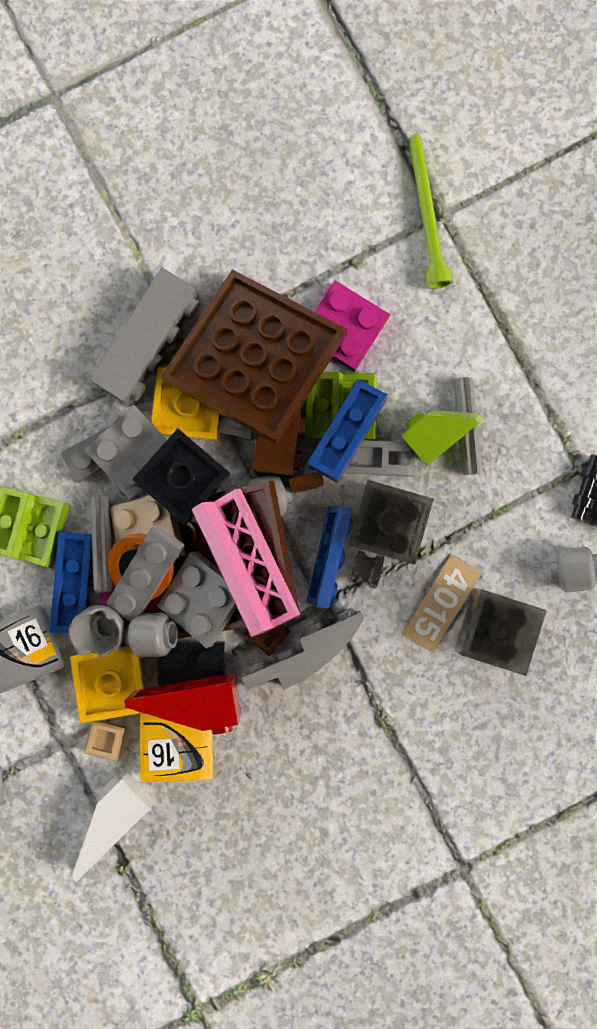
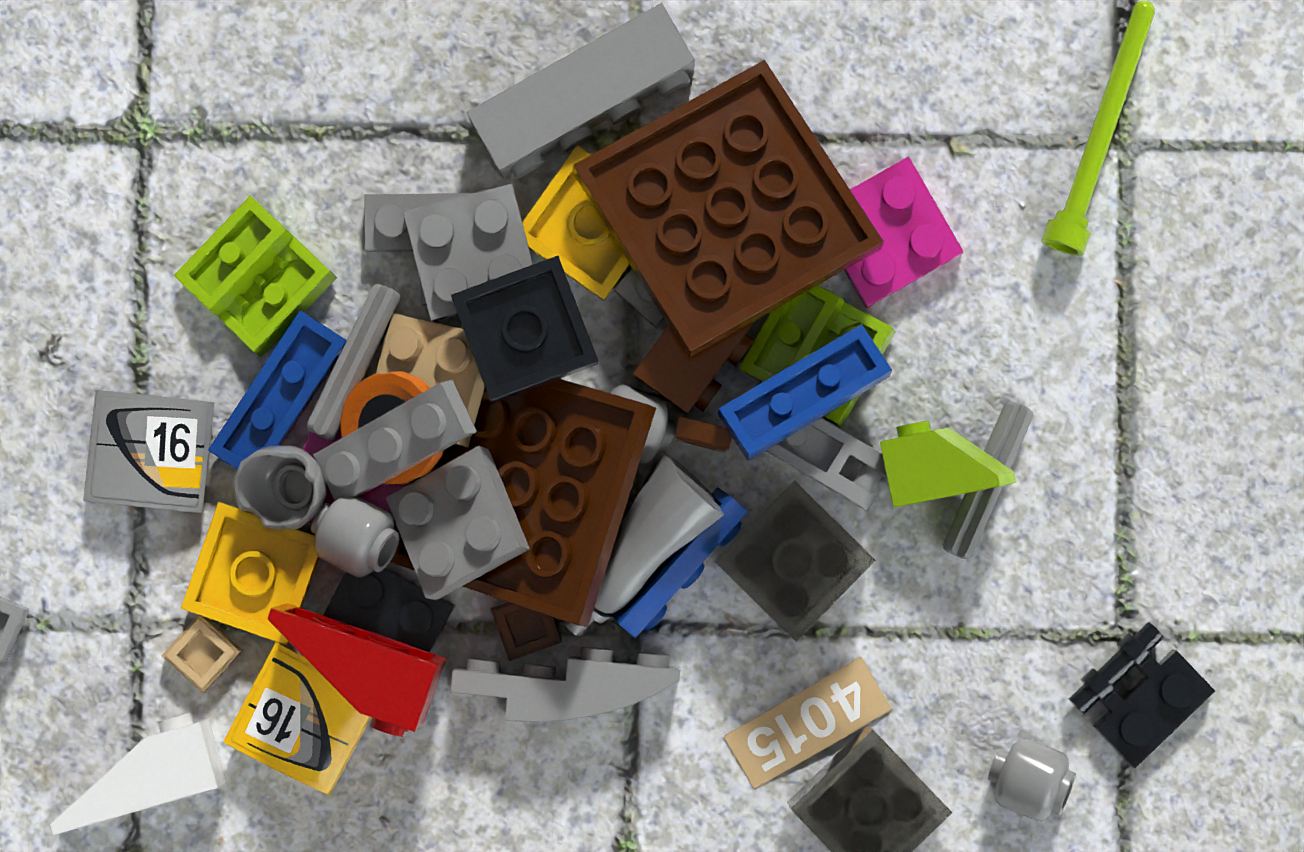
camera: 25 degrees right, 0 degrees up
(235, 568) = (532, 509): bright pink fence -> none
(308, 539) = (663, 518): none -> light grey piece
(367, 569) = (723, 611): clear smoke wheel -> none

